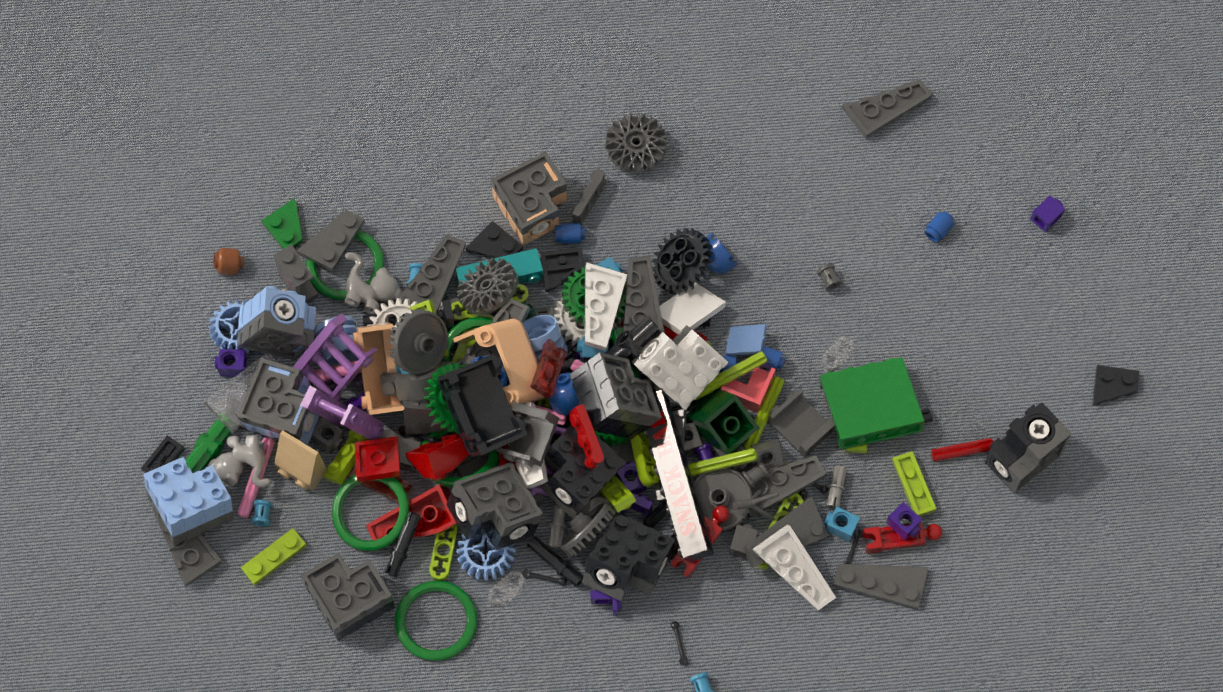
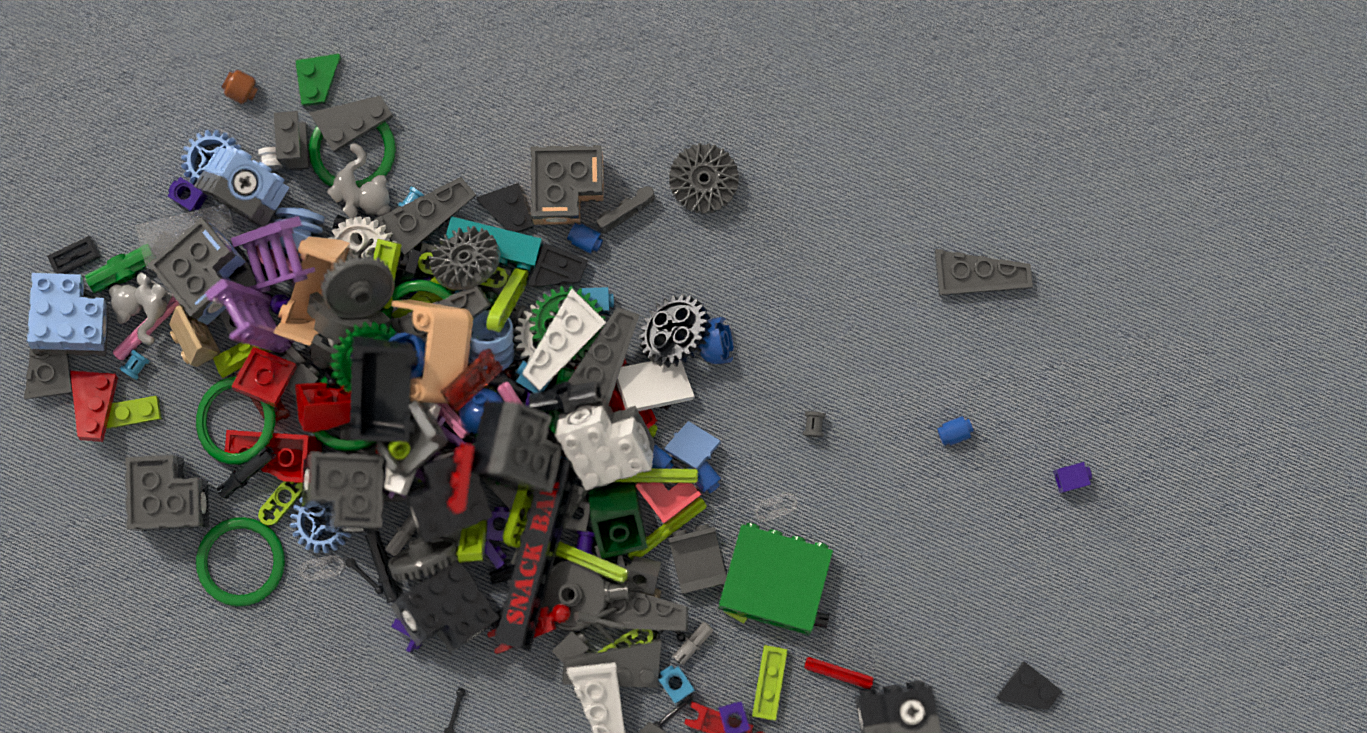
camera: 30 degrees right, 15 degrees up
(244, 558) = (92, 403): none -> red wing
(525, 449) = (399, 452): none -> lime hinge
(538, 303) = (507, 300): none -> lime beam

